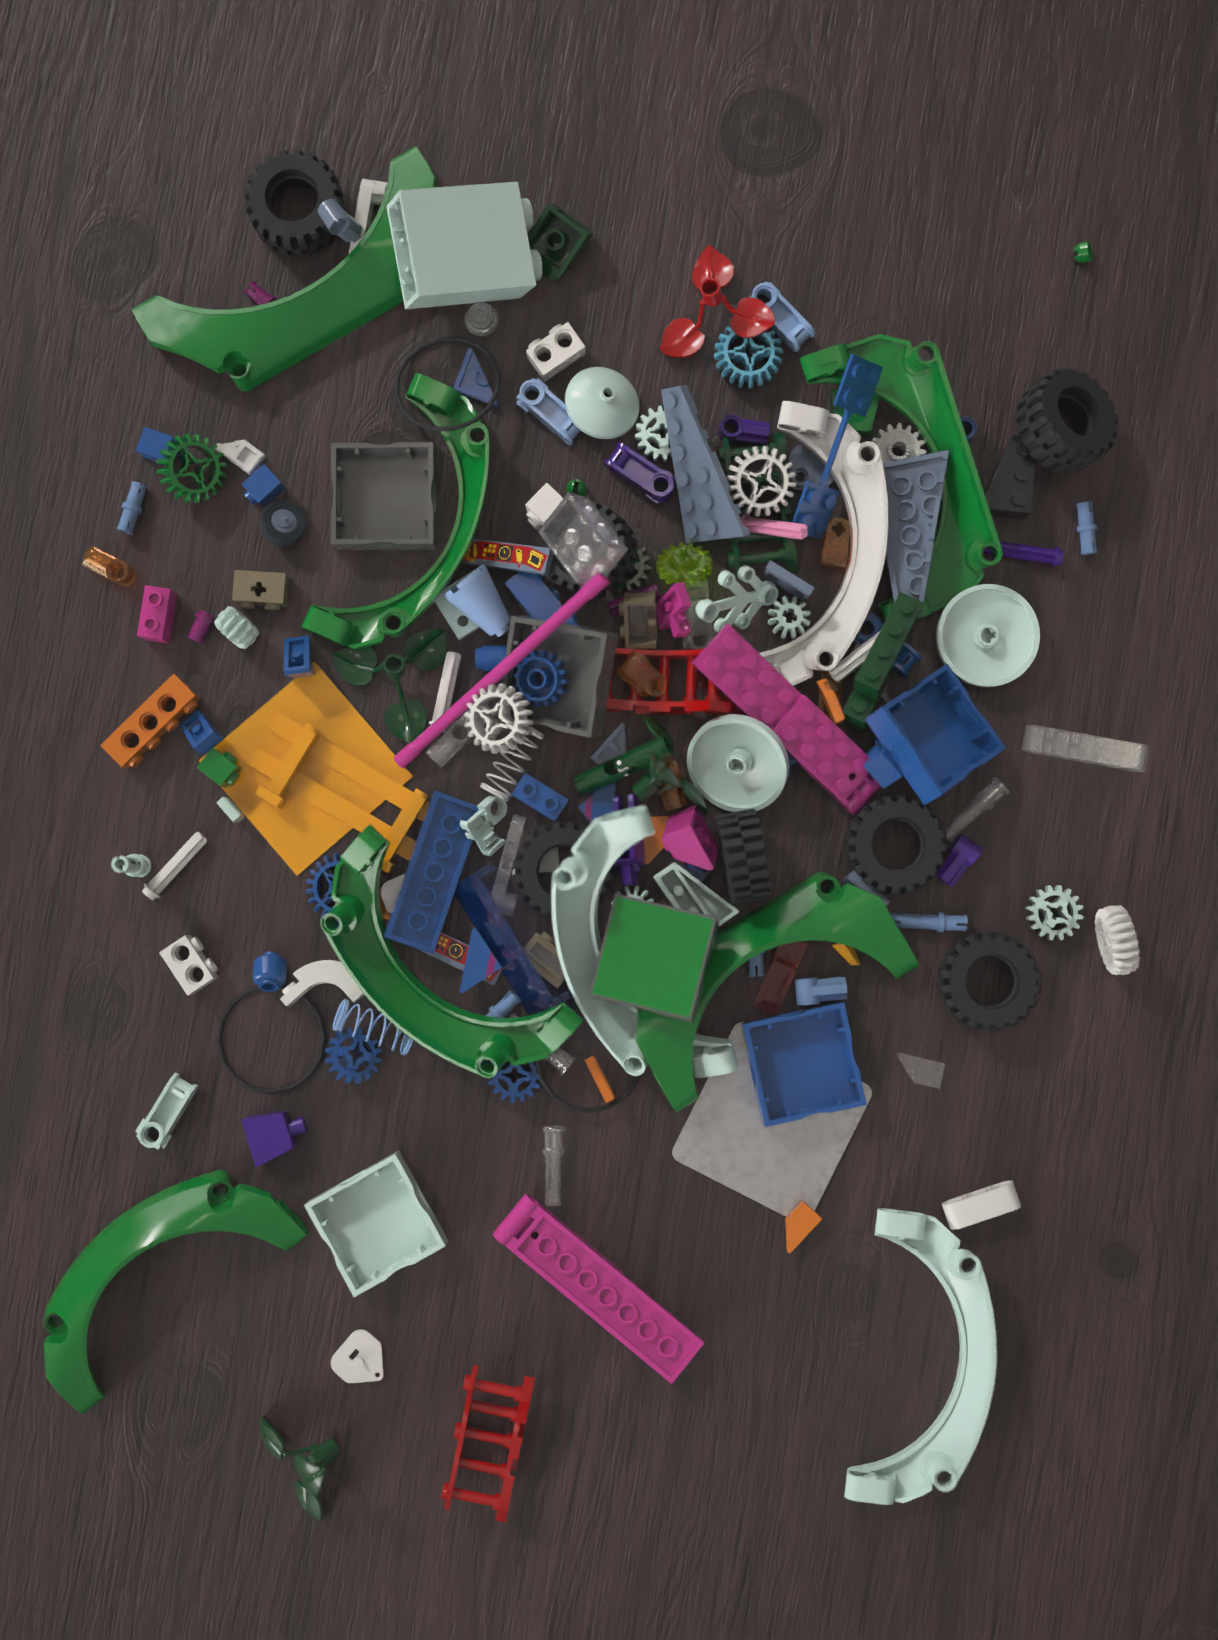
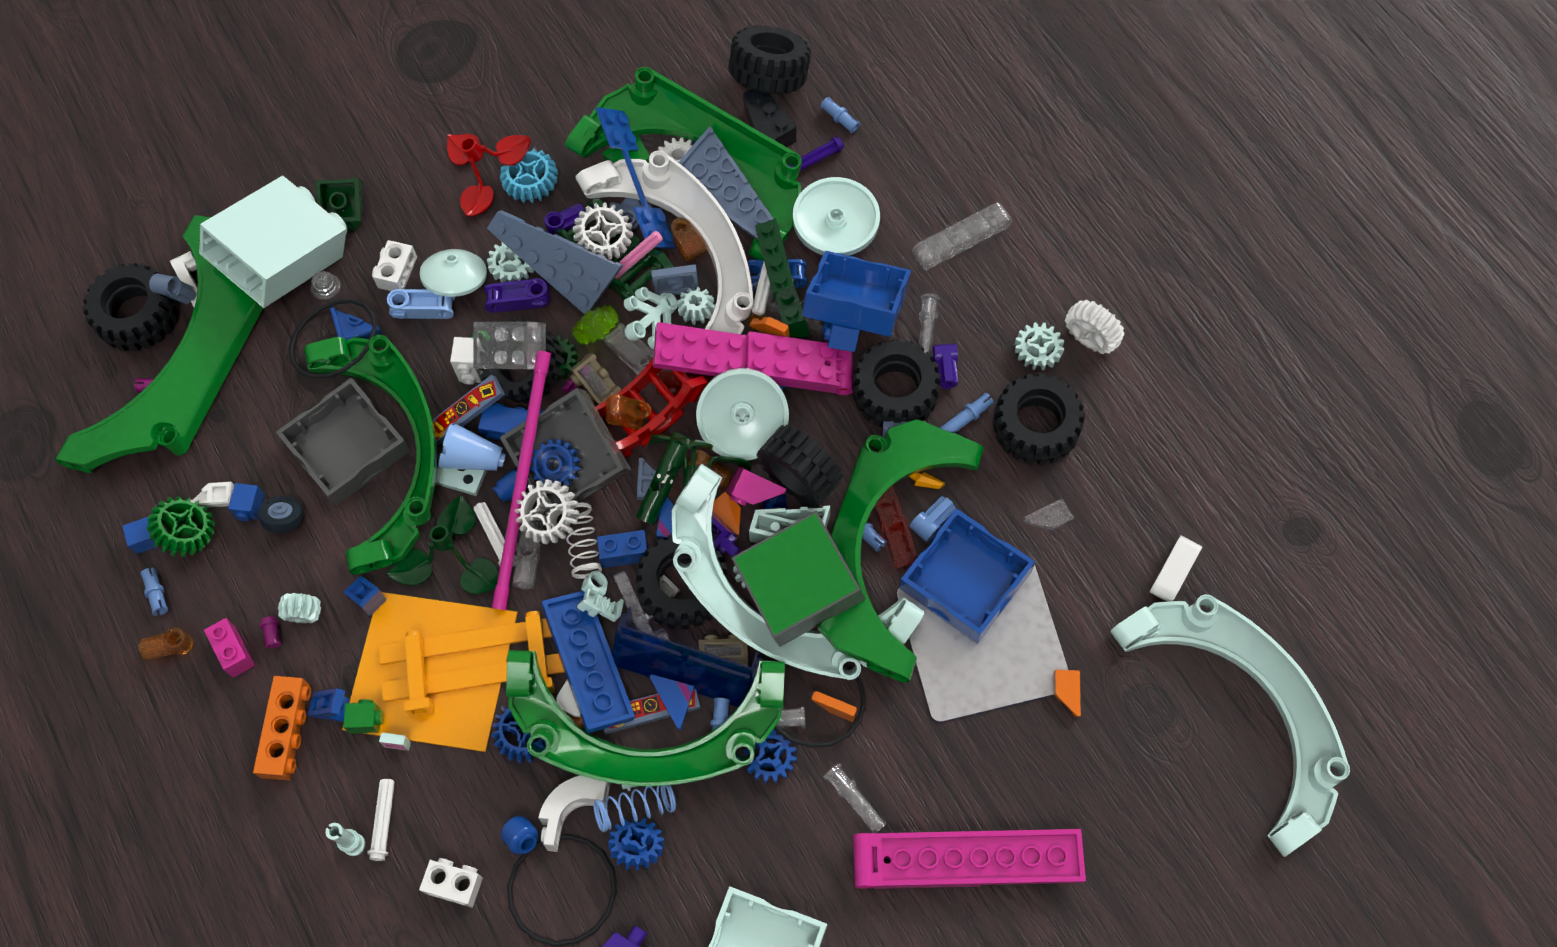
camera: 45 degrees left, 20 degrees down
(248, 582) = (304, 560): dark tan brick -> none
(672, 610) = (611, 354): dark pink hinge -> none
(788, 320) = (540, 137): light blue piece -> none

